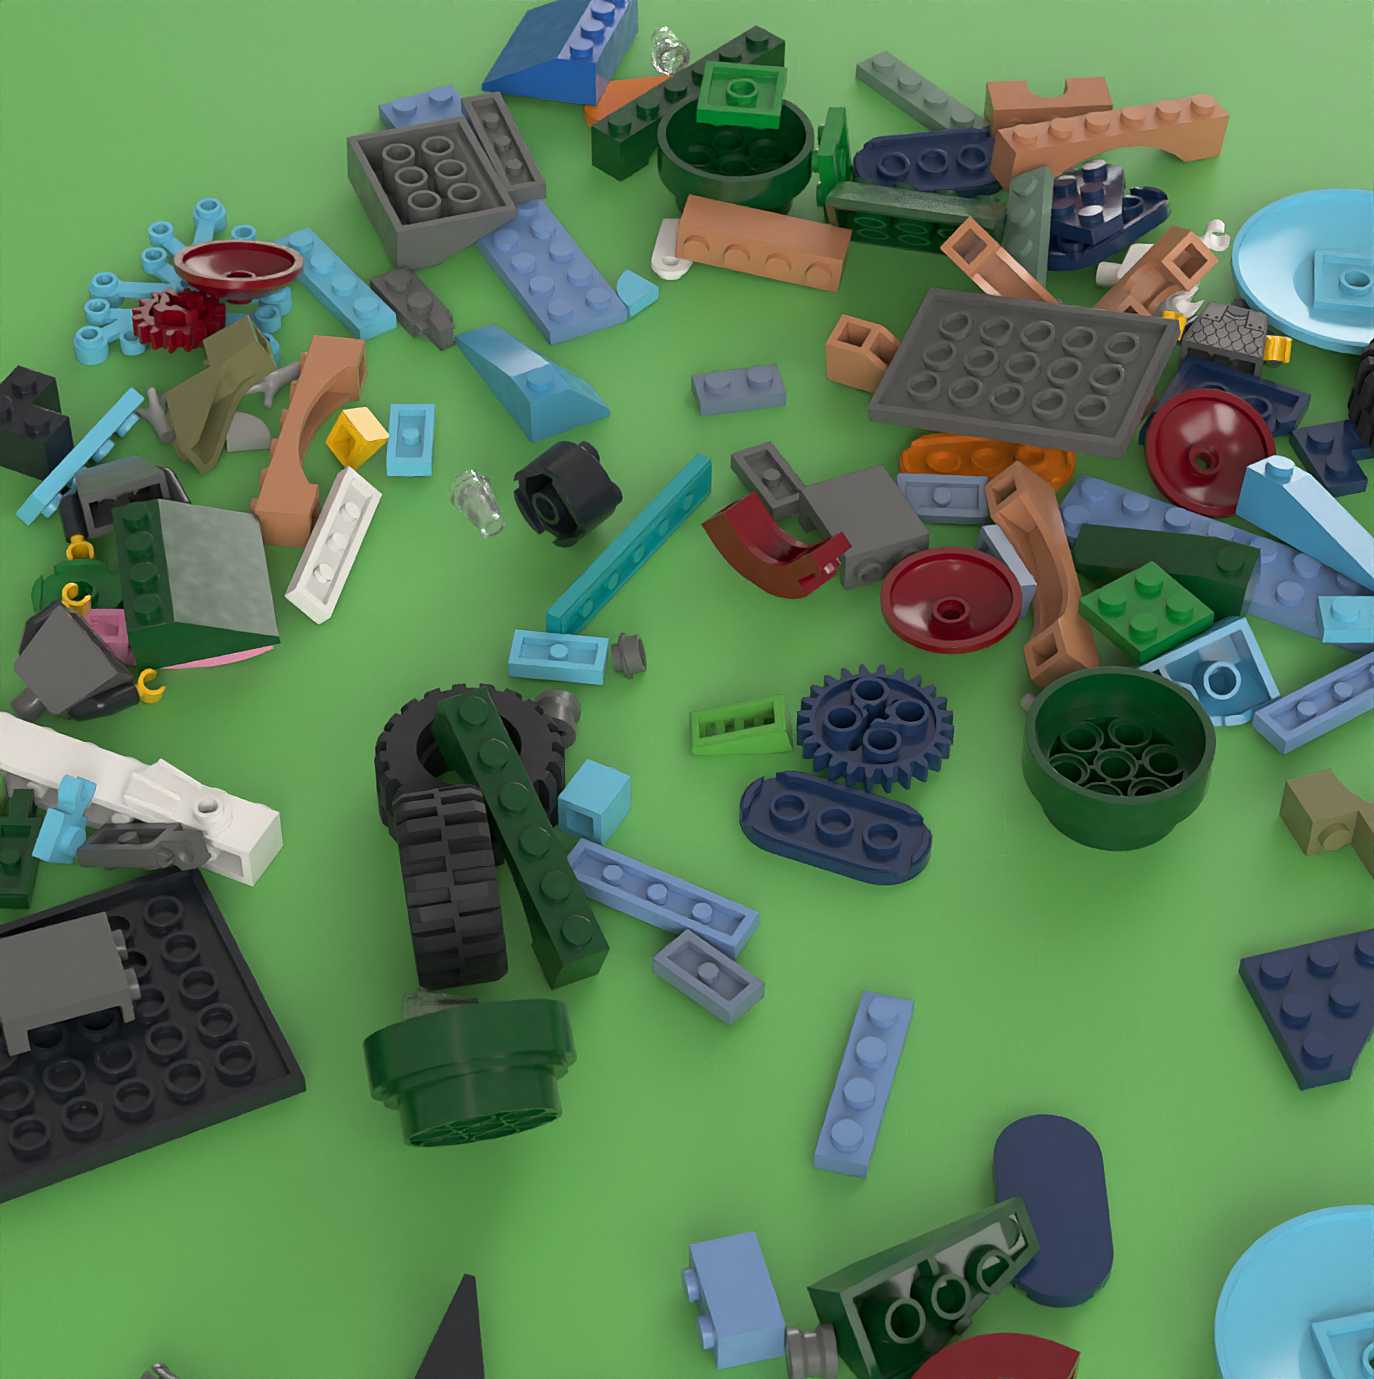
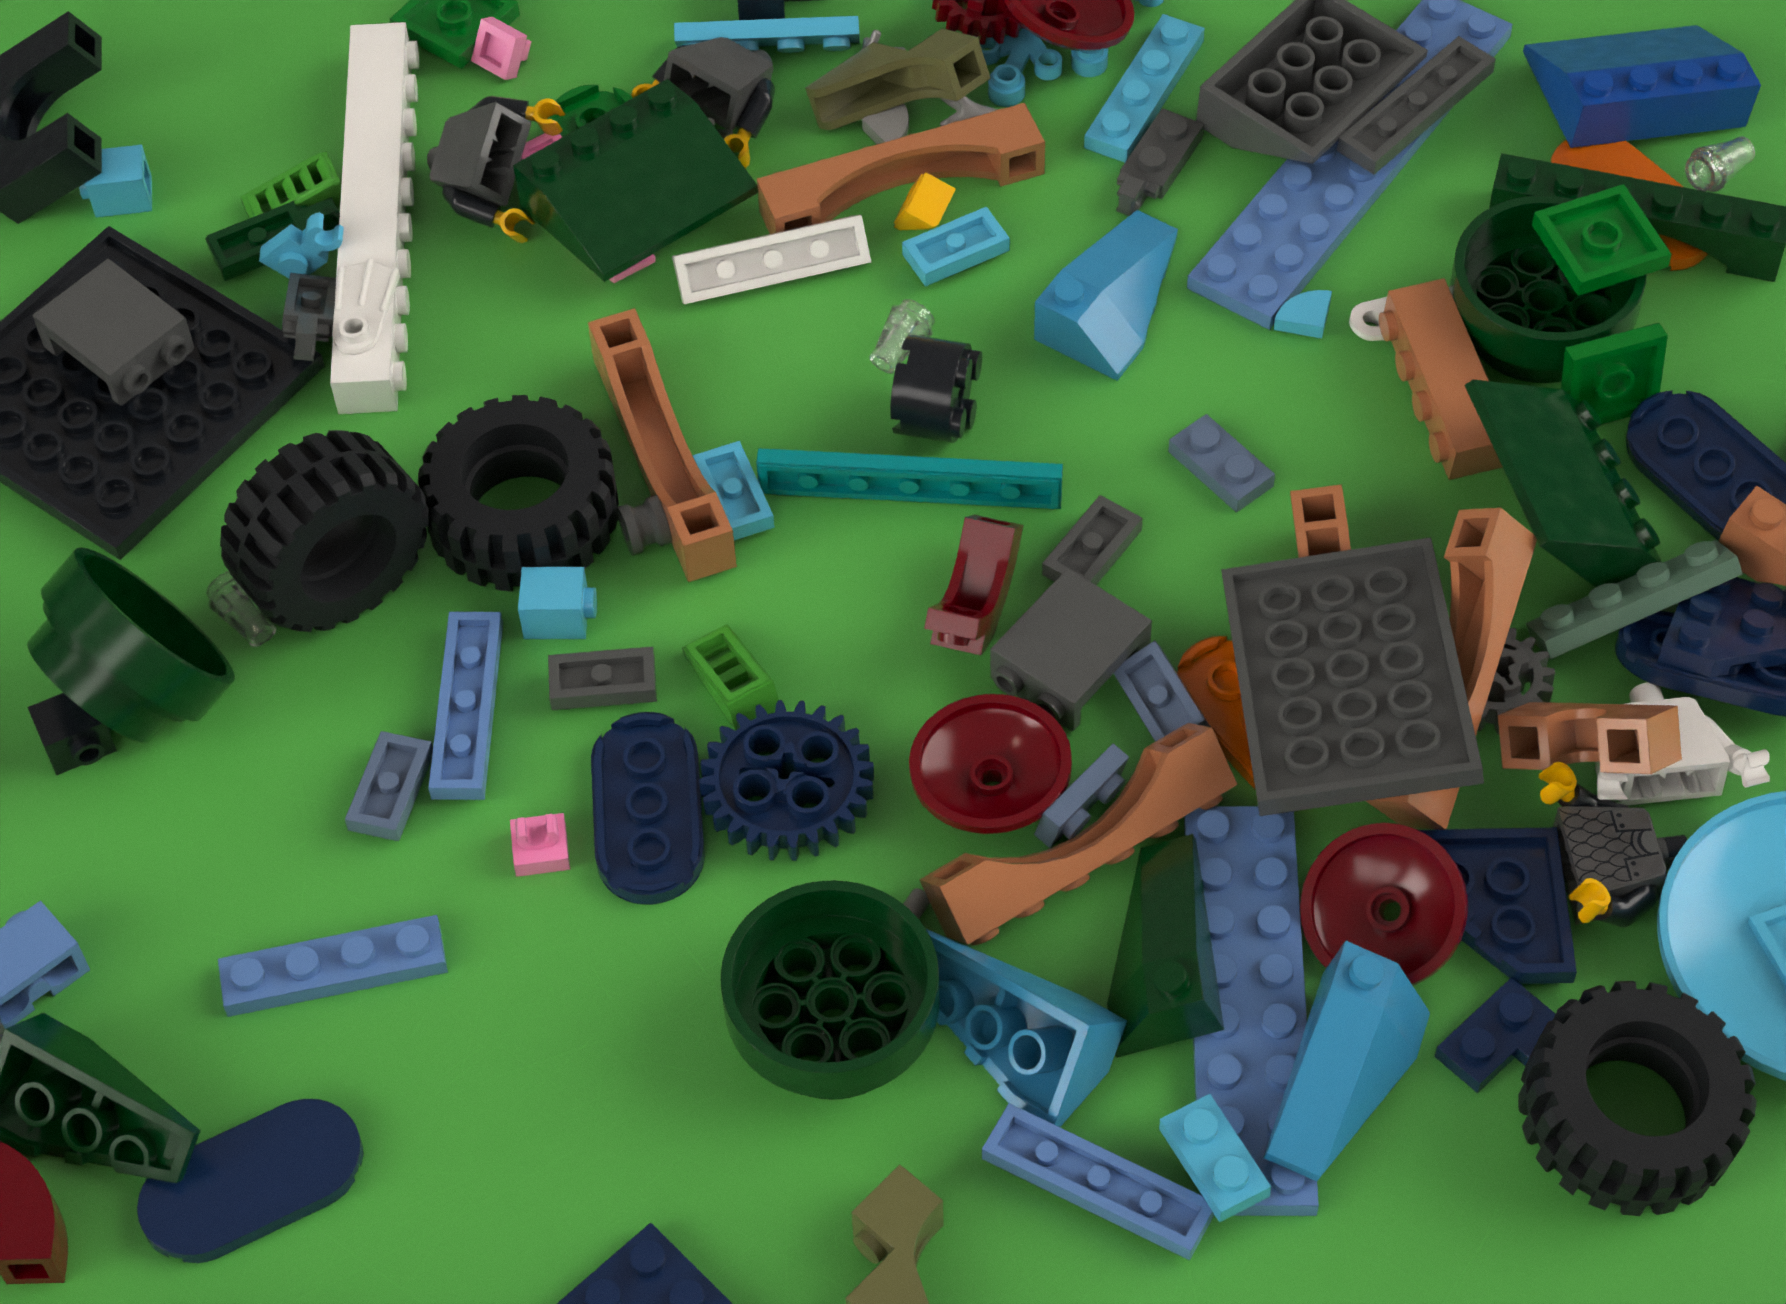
camera: 65 degrees right, 10 degrees up
(392, 666) = (635, 387): none -> nougat arch
(492, 1177) = (70, 733): none -> black brick
(557, 912) = (369, 633): dark green arch -> none
(629, 655) = (771, 544): dark grey plate -> none
(692, 803) = (602, 678): none -> dark grey plate
(829, 904) = (539, 844): none -> bright pink tile
(1145, 613) = (1064, 938): green plate -> none

